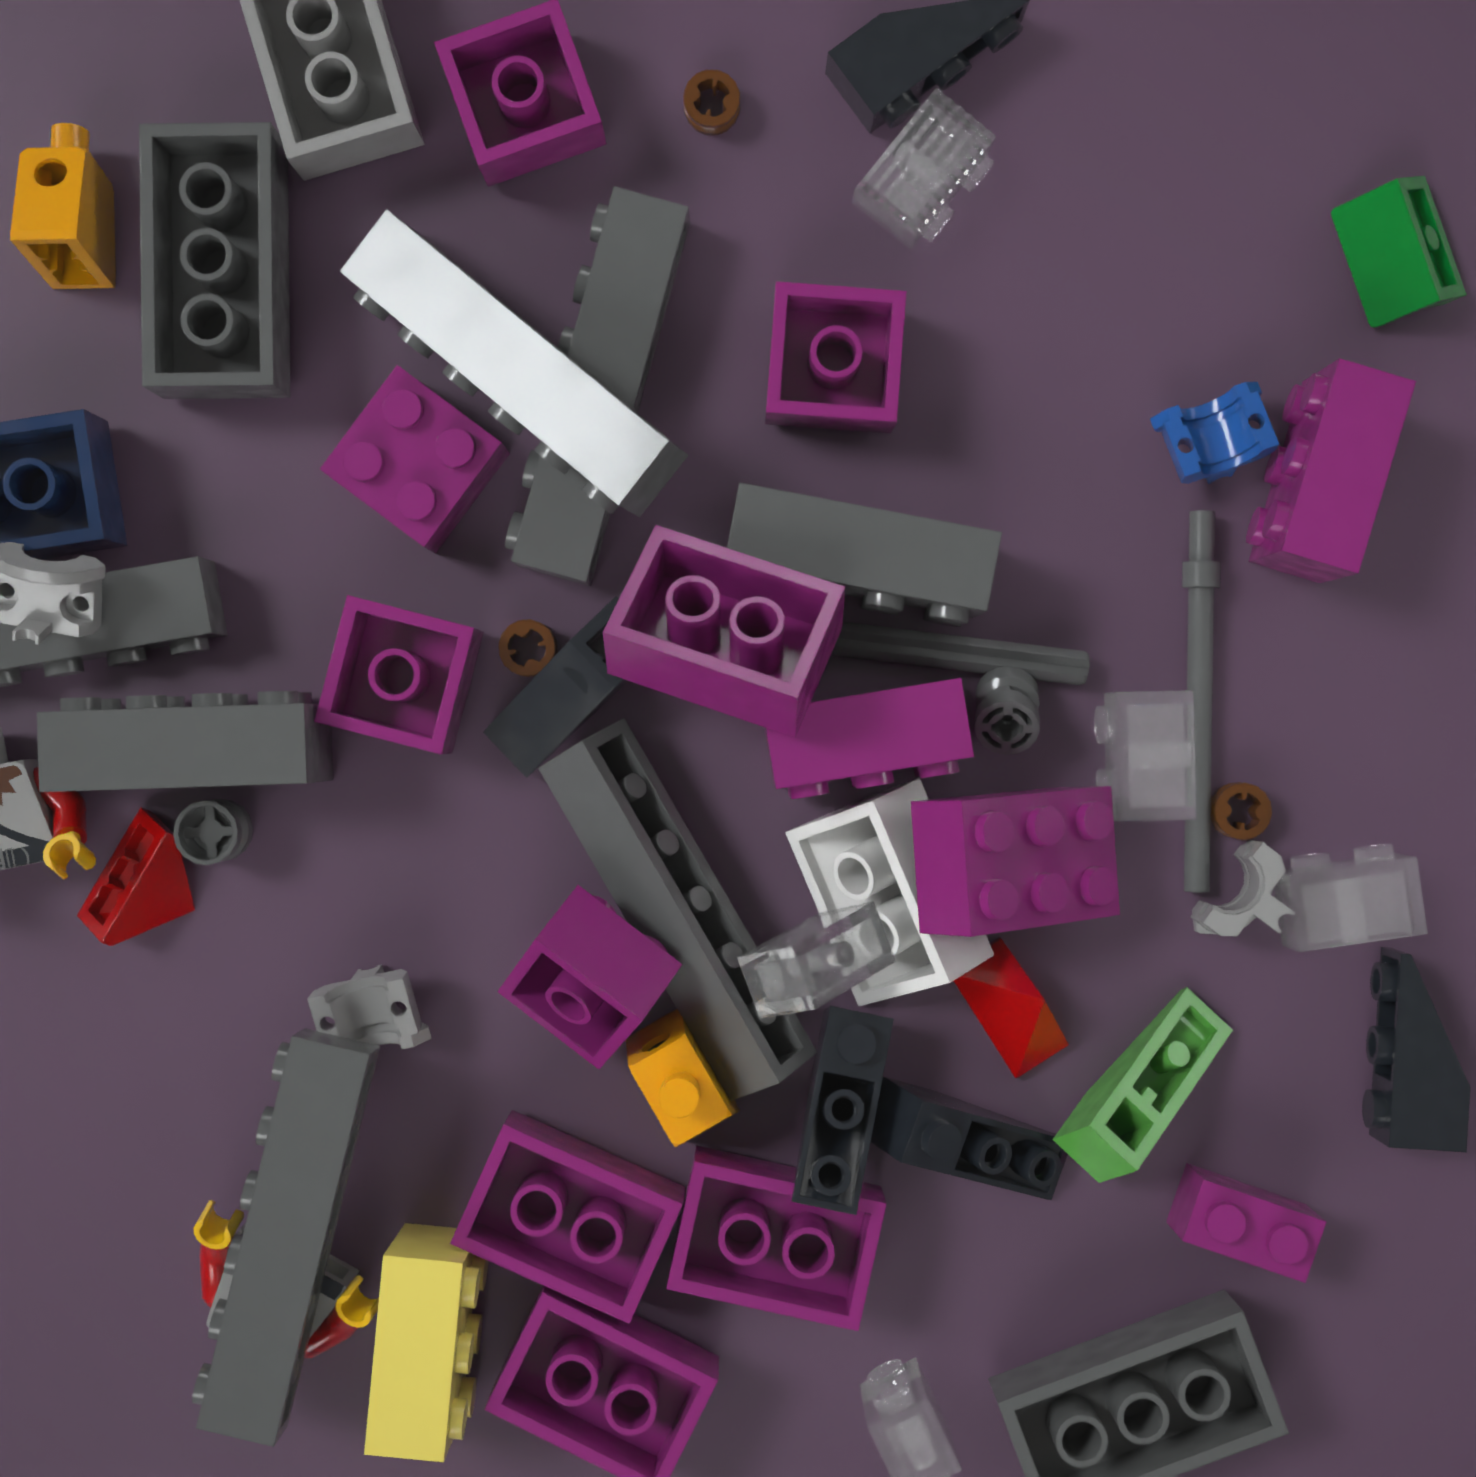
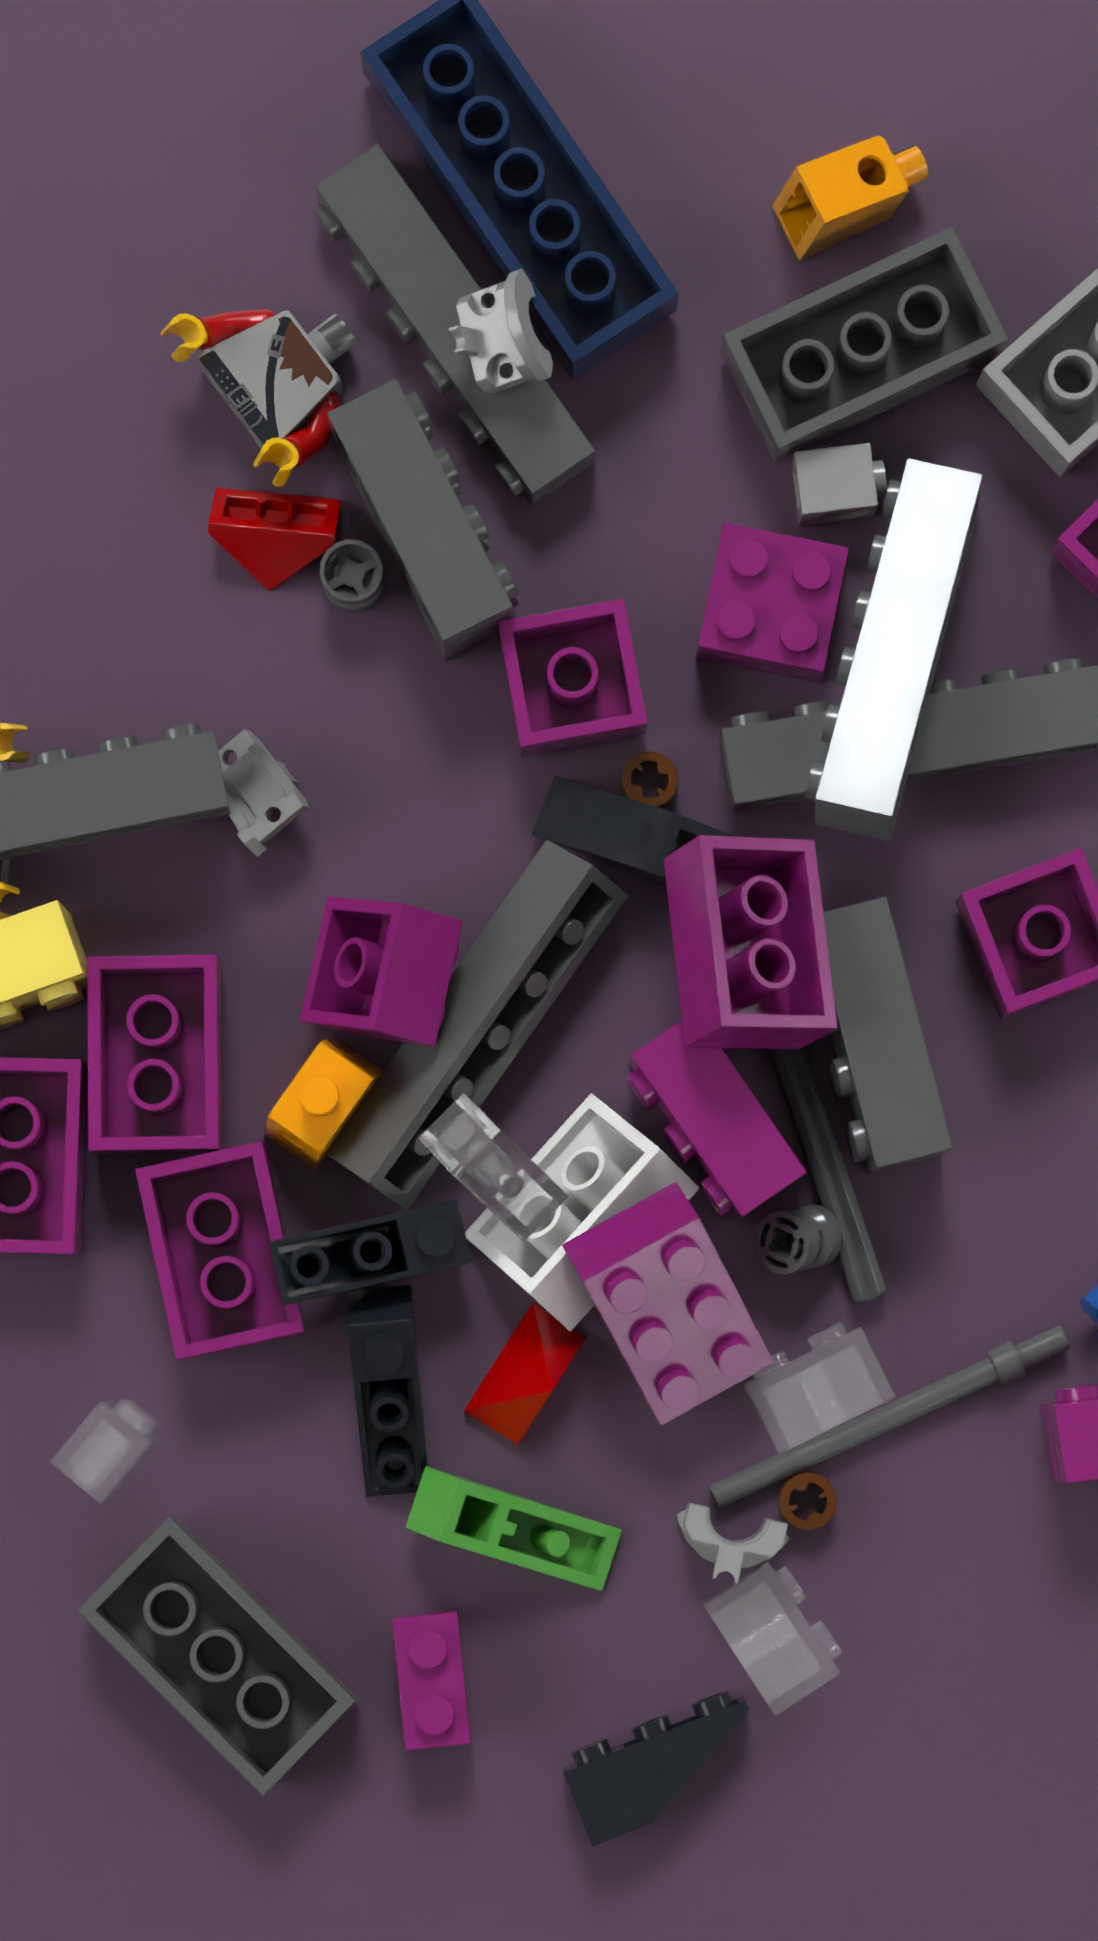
camera: 65 degrees right, 5 degrees down
(334, 348) = (837, 484): none -> light grey brick

